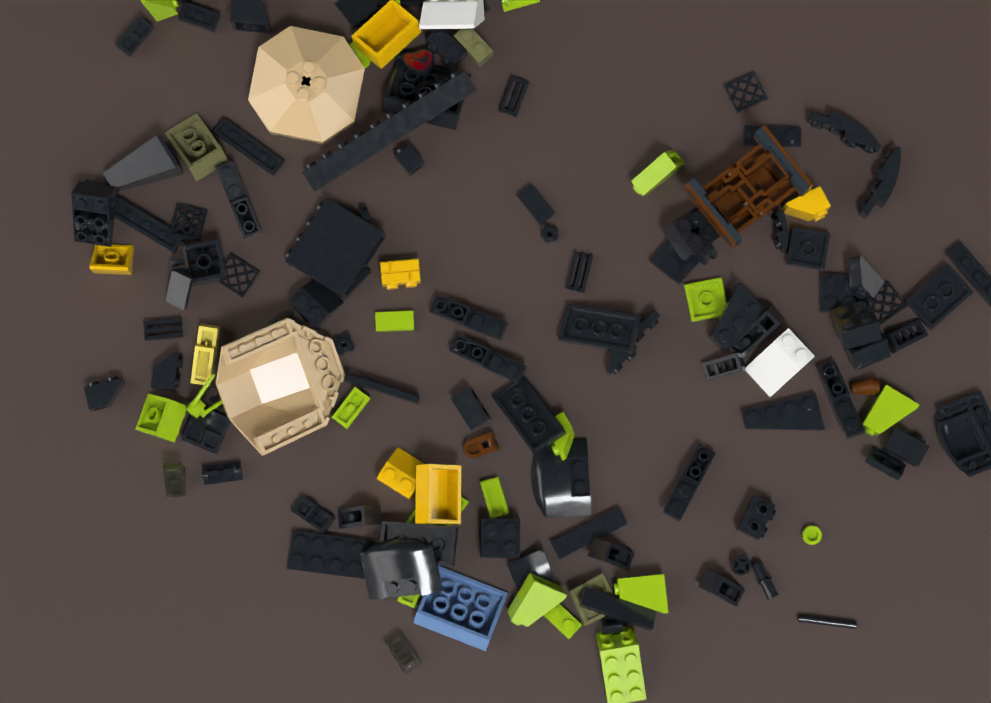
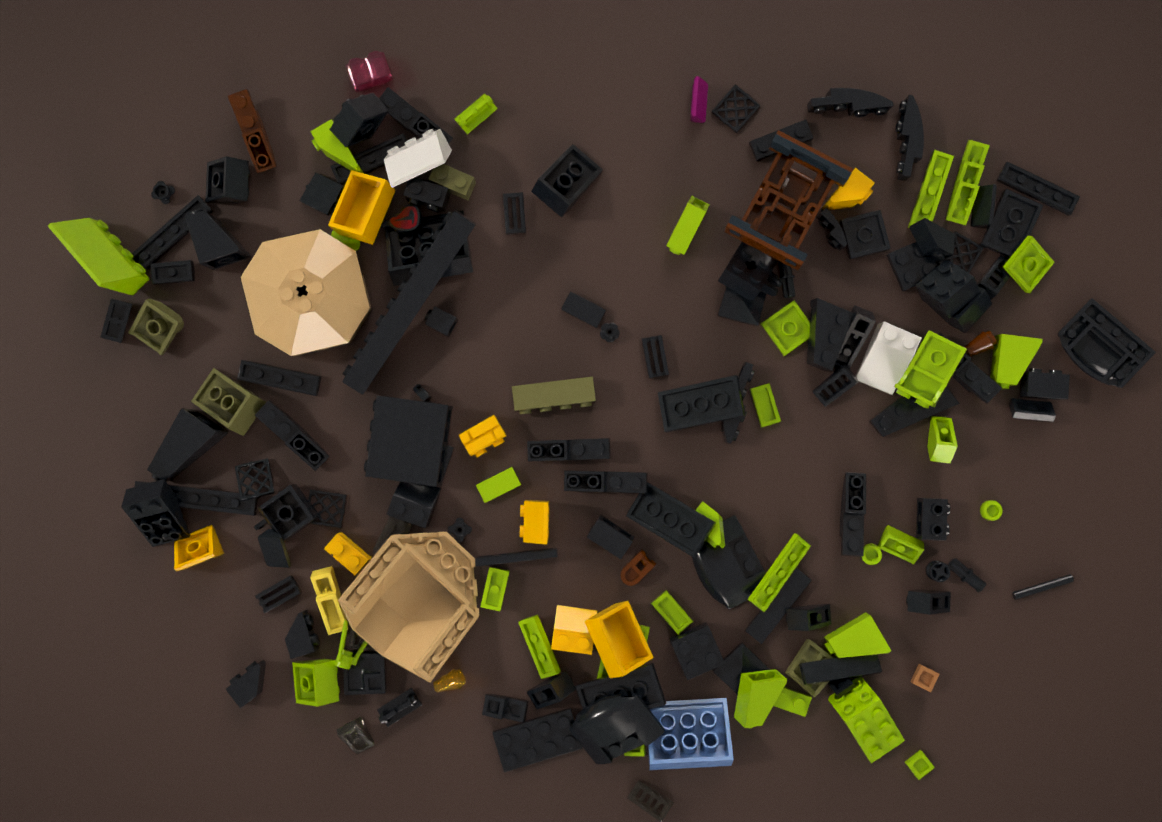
camera: 20 degrees left, 5 degrees up
(165, 56) = (156, 325): none -> olive slope
(238, 318) = (348, 553): none -> yellow brick
(276, 469) = (451, 681): none -> clear yellow cone
(366, 474) = (539, 646): none -> lime plate
(412, 365) = (535, 521): none -> yellow slope
(477, 264) = (553, 394): none -> olive brick
(571, 88) = (566, 180): none -> black slope
(602, 504) = (779, 572): none -> lime tile
(655, 356) = (765, 405): none -> lime tile
(688, 652) = (924, 677): none -> medium nougat plate
(689, 525) = (872, 554): none -> lime tile
(716, 71) = (699, 100): none -> magenta slope
(719, 529) = (901, 544): none -> lime slope
(722, 259) = (787, 277): none -> black axle
(794, 453) = (941, 440): none -> lime slope
(808, 387) = (930, 369): none -> lime bracket
(884, 233) = (932, 187): none -> lime plate
(917, 243) = (967, 182): none -> lime slope
(921, 270) = (984, 206): none -> black slope
(938, 337) = (1028, 264): none -> lime tile

